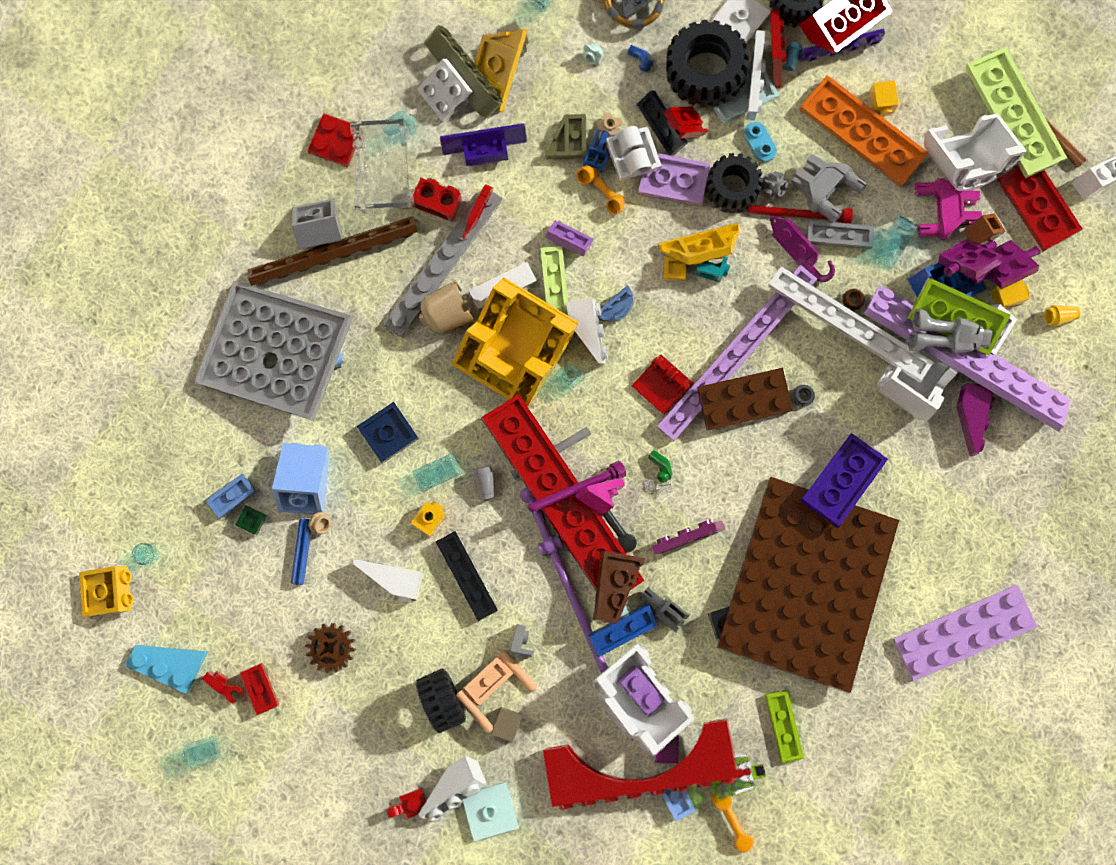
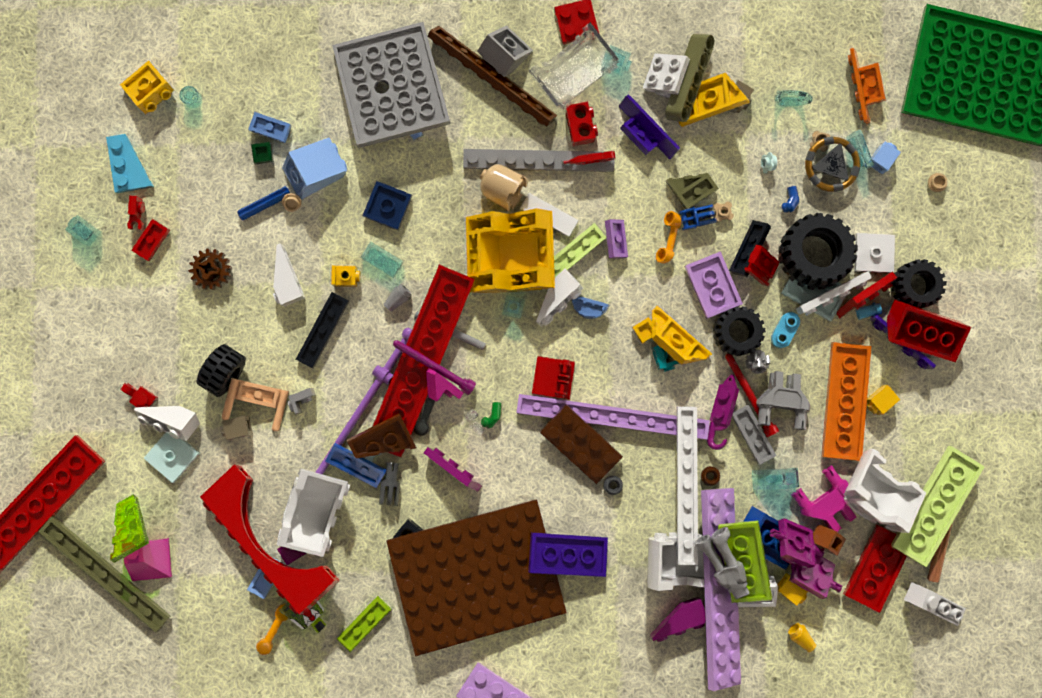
camera: 50 degrees right, 5 degrees up
(633, 152) = (711, 242): white plate -> none
(640, 690) = (320, 506): medium lavender plate -> none

